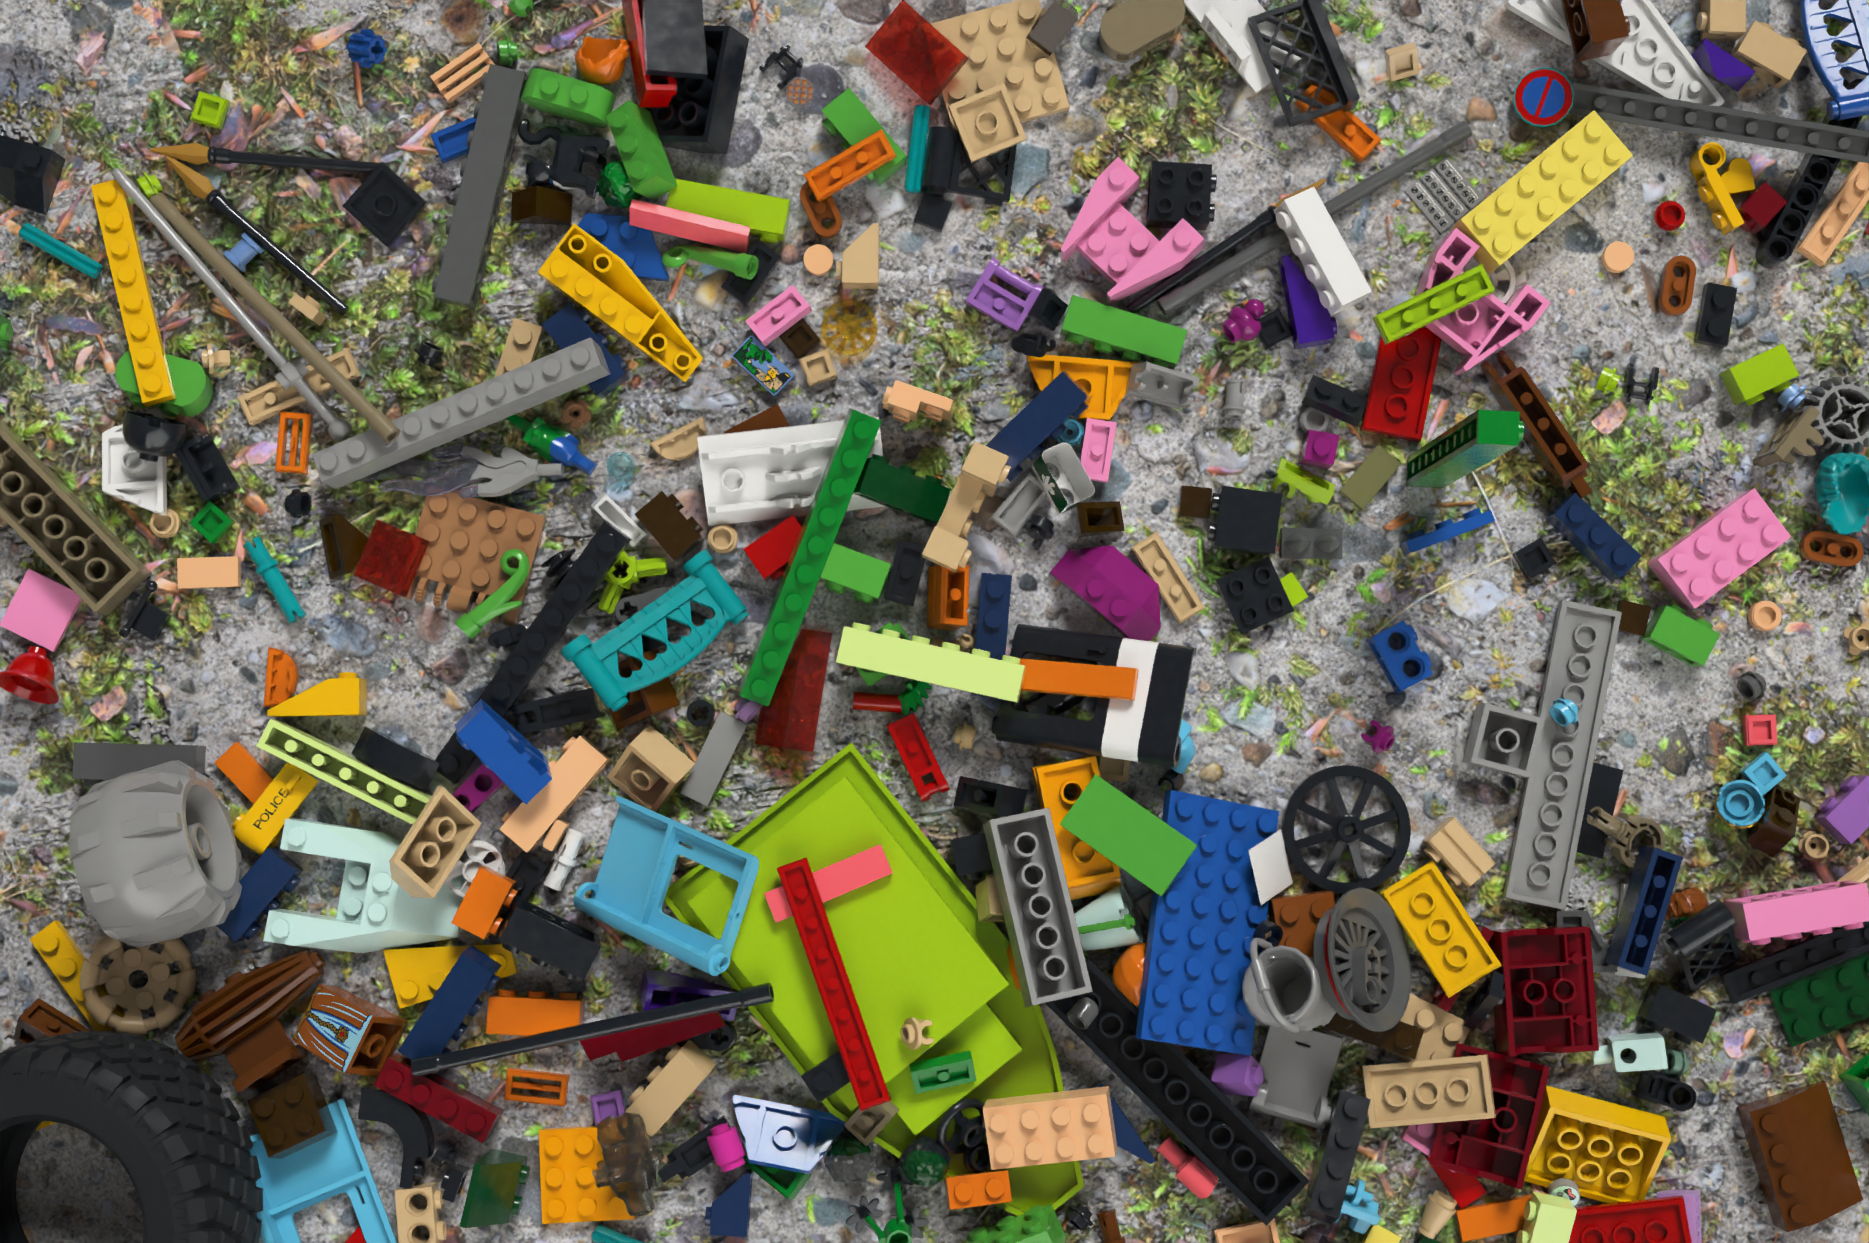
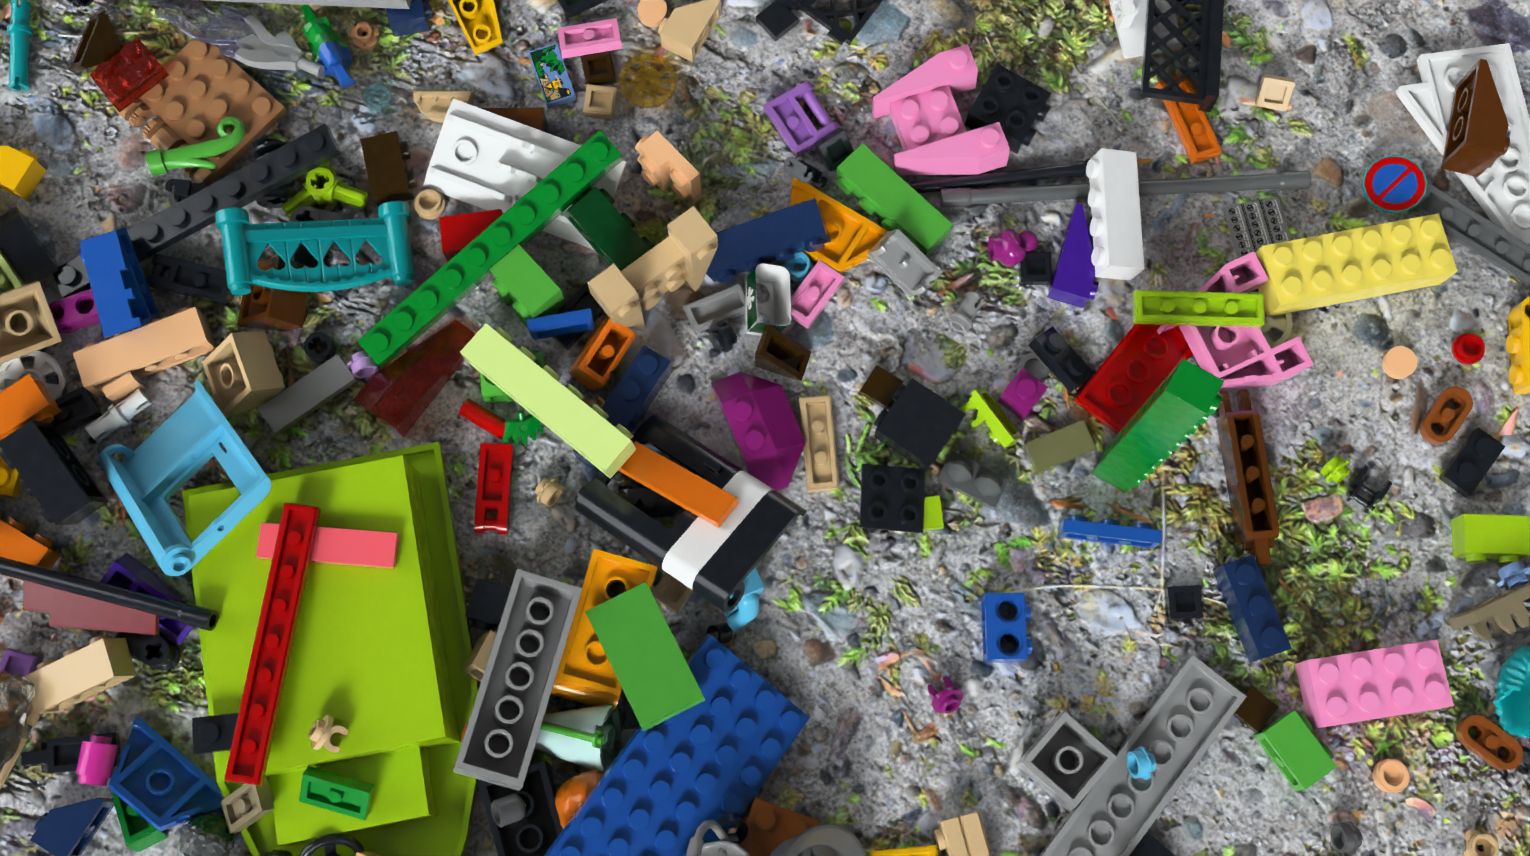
camera: 30 degrees right, 10 degrees down
(617, 517) = (347, 142): white piece -> none
(901, 590) = (561, 324): none -> blue tile
(989, 797) = (539, 557): black slope -> none
(1270, 867) = (771, 765): white sticker -> none
(1337, 832) = (917, 733): black wheel -> none

